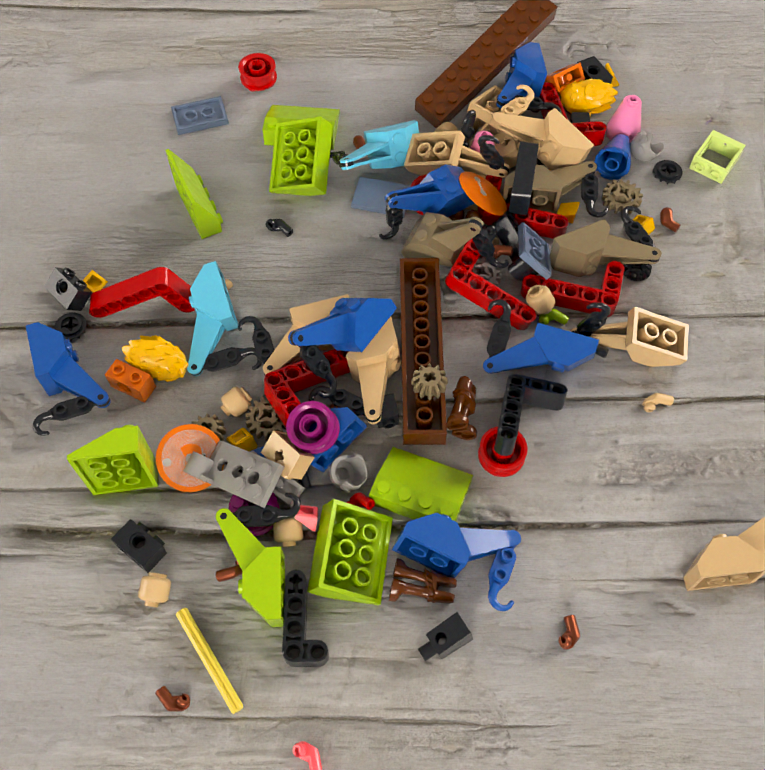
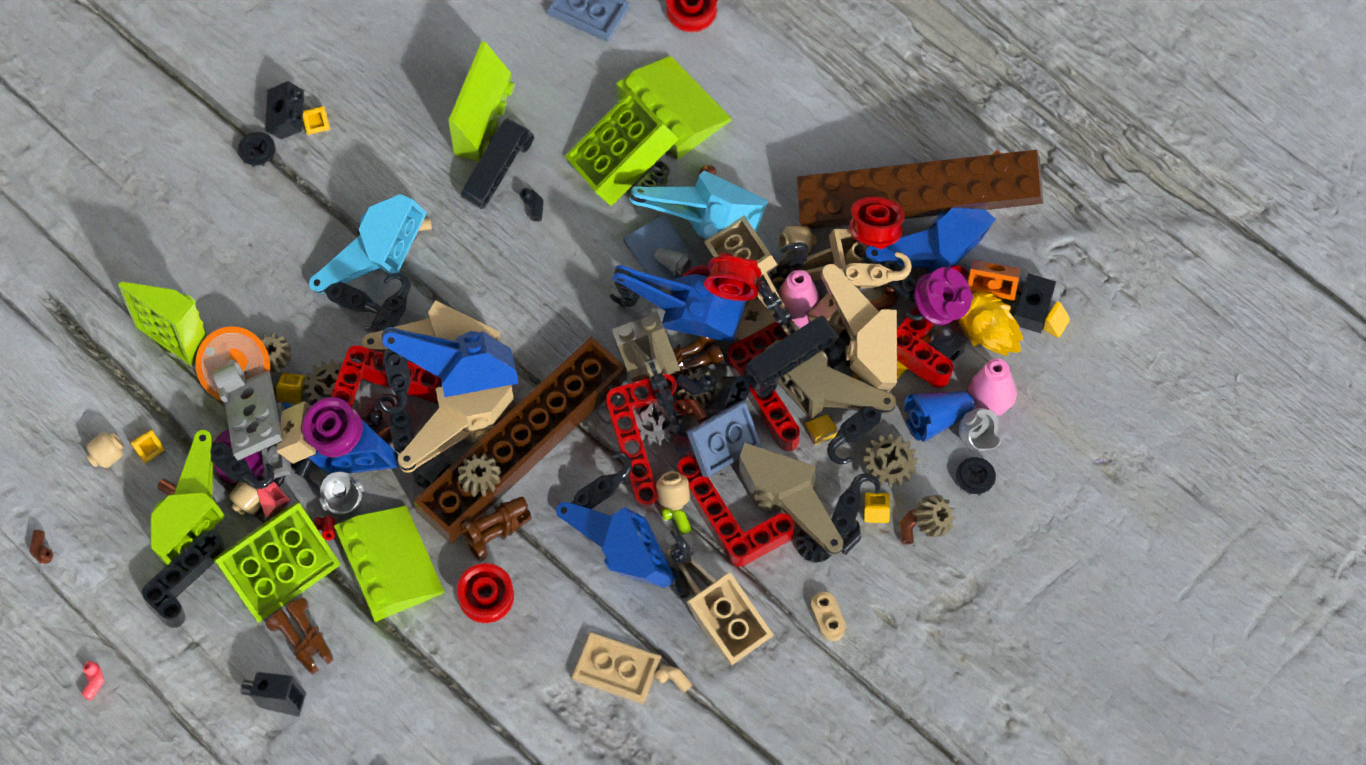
camera: 45 degrees right, 5 degrees up
(58, 371) = (202, 185): blue slope -> none
(130, 380) = (254, 248): orange brick -> none
(139, 289) = (337, 169): red beam -> none
(146, 556) = (124, 390): black brick -> none
(156, 357) = (291, 245): yellow head -> none
(180, 560) = (147, 445): none -> yellow slope
(209, 660) = (93, 543): light yellow axle -> none
(235, 219) = (496, 162): none -> black beam
(236, 401) = (319, 347): tan head -> none
(393, 187) = (674, 261): none -> light grey cone
(447, 548) = (350, 628): blue slope -> none
(458, 151) = (732, 277): none -> red wheel
(483, 193) = (734, 336): orange piece -> none
(489, 80) = (876, 221): none -> red wheel
(526, 391) = (553, 553): black beam -> none
(560, 92) = (943, 296): none -> magenta wheel
(620, 426) = (616, 668): none -> tan tile
(678, 202) = (934, 516): none -> dark tan gear
(688, 298) = (828, 614): none -> tan plate
(716, 143) = (1058, 482): yellowish green window -> none

